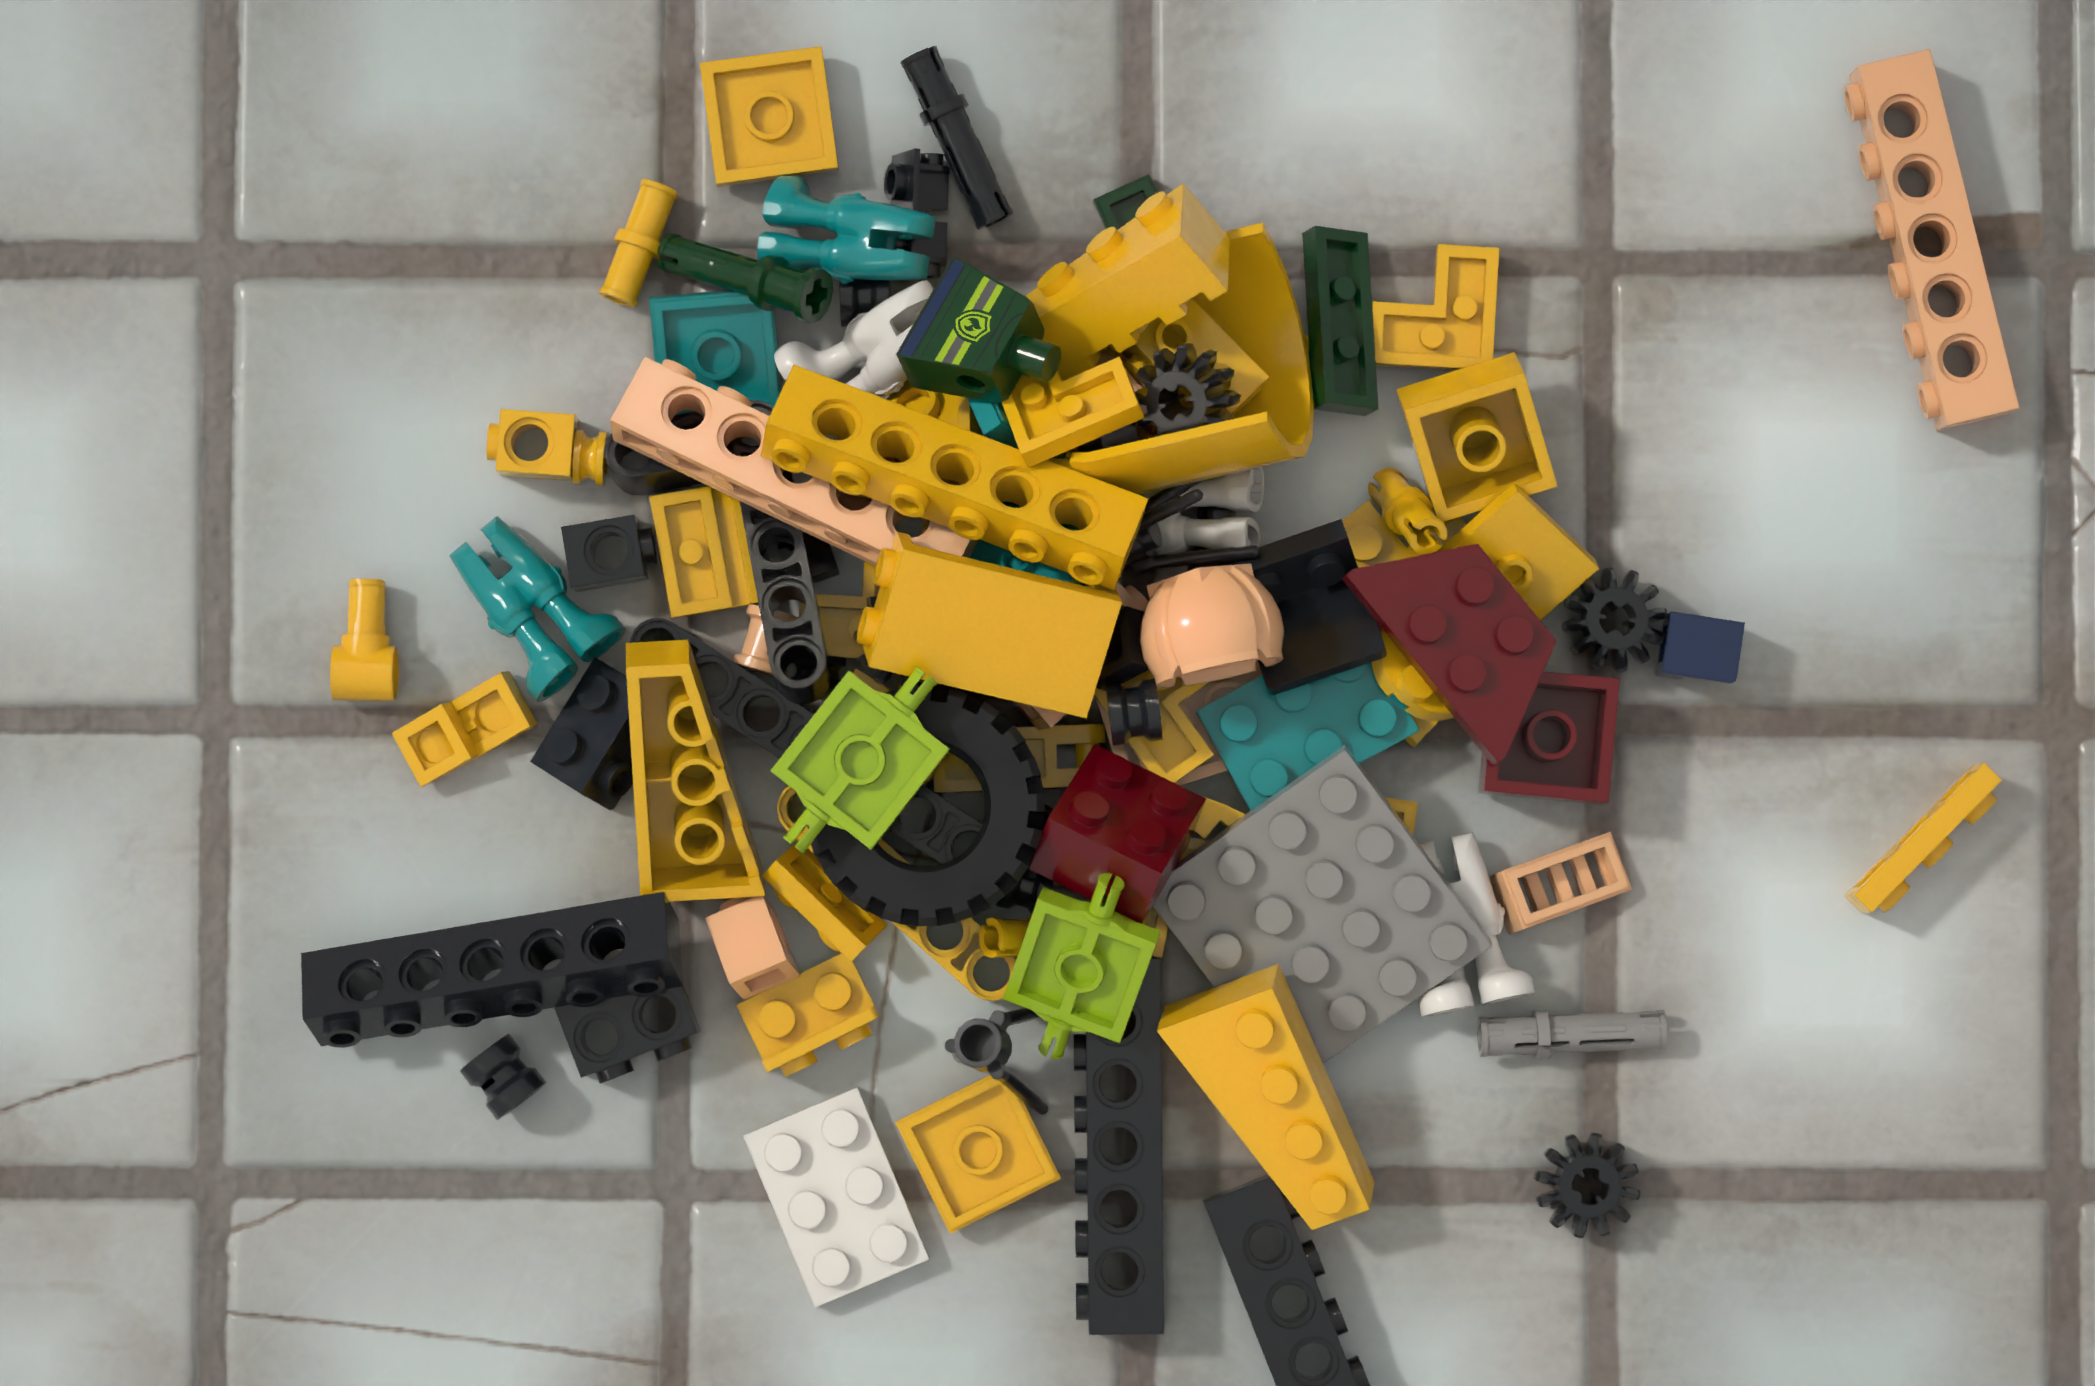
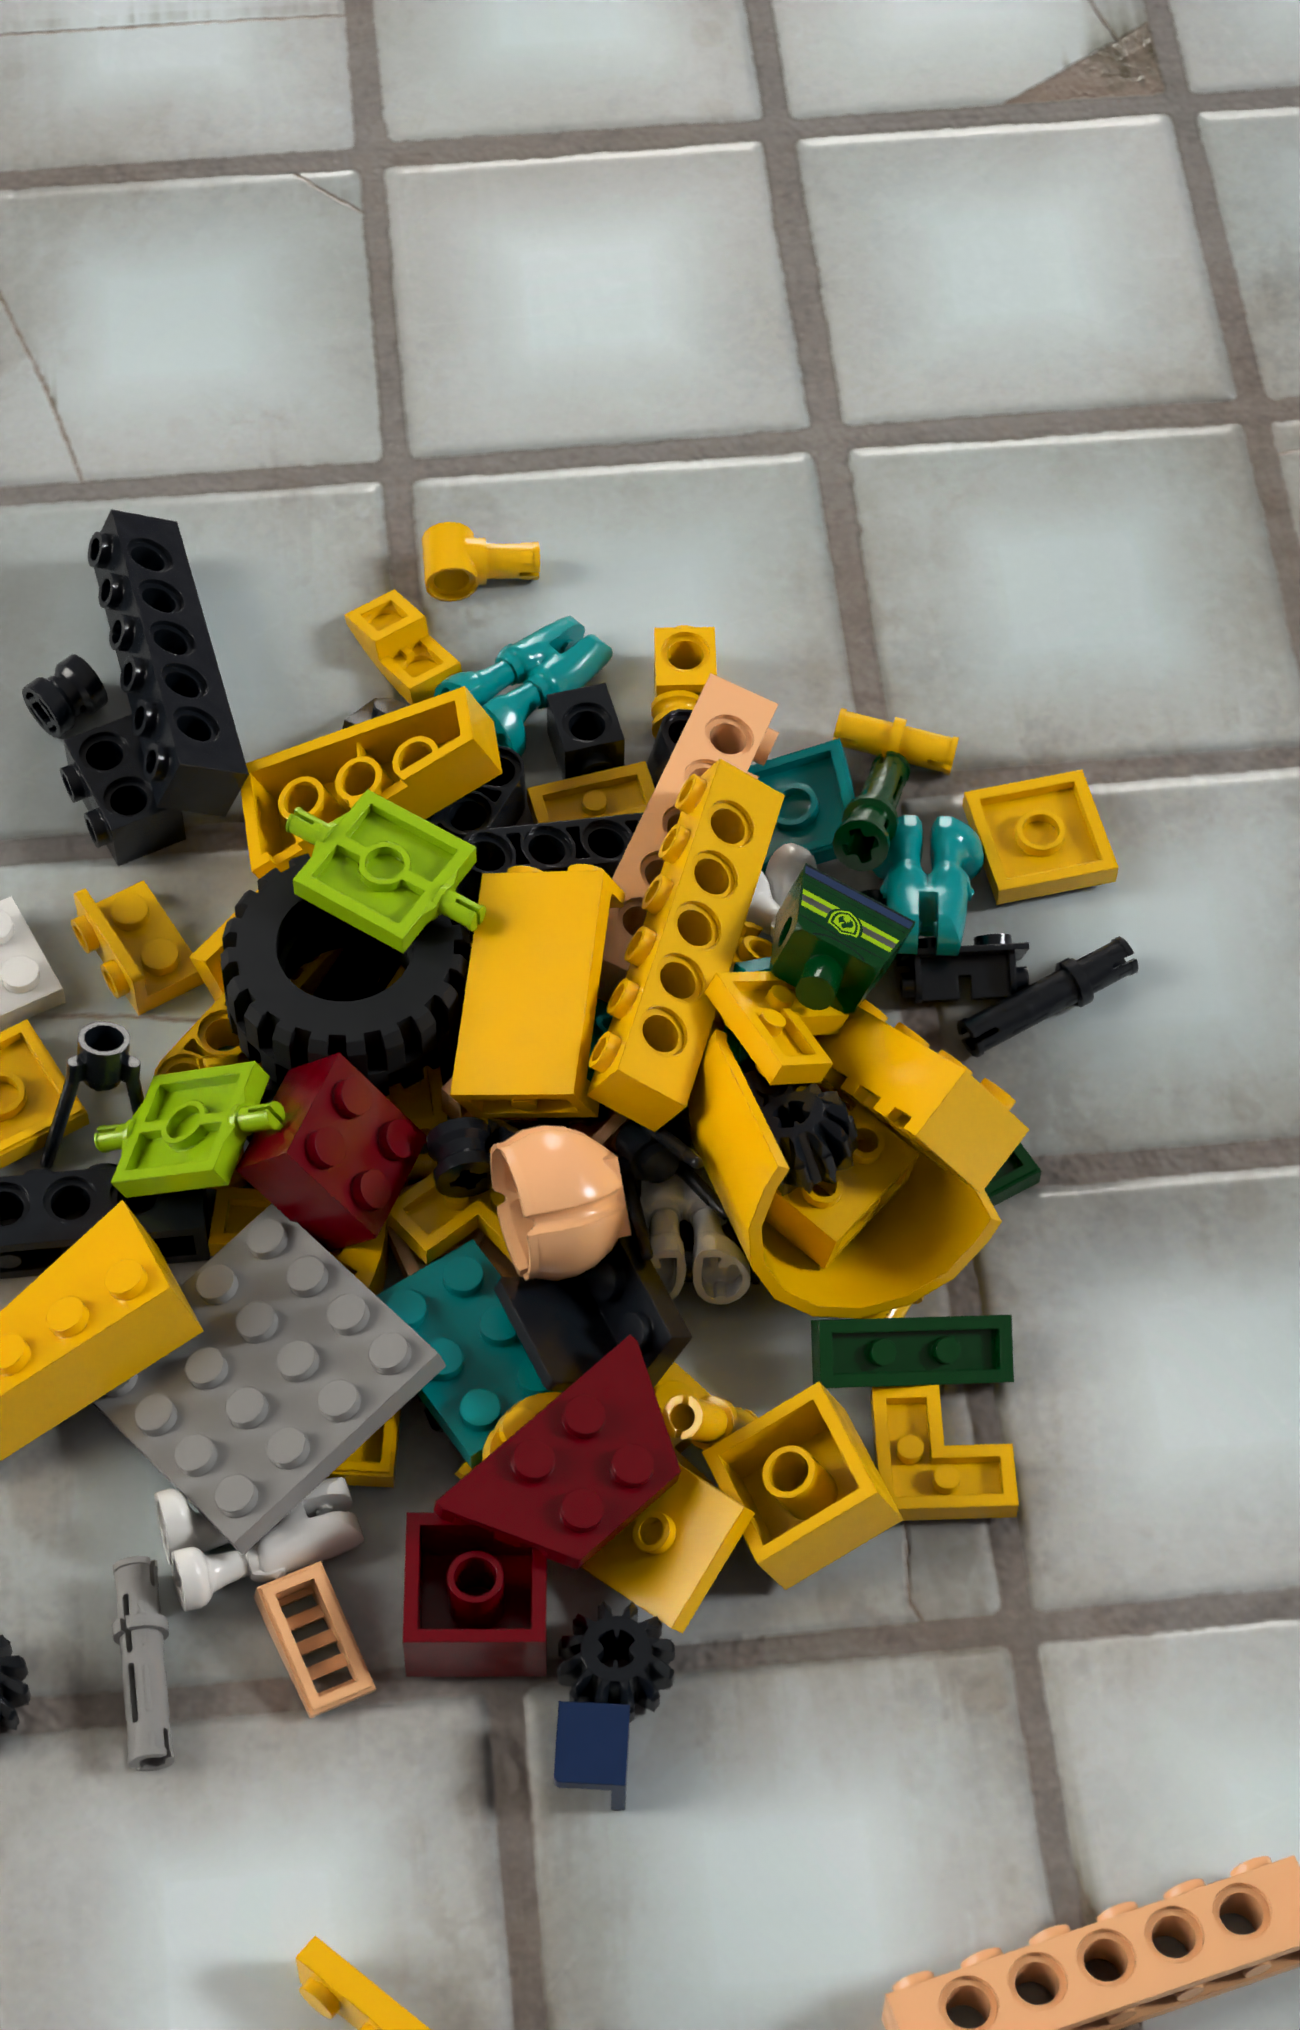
camera: 85 degrees right, 30 degrees down
(751, 945) = (200, 878): light nougat brick -> none

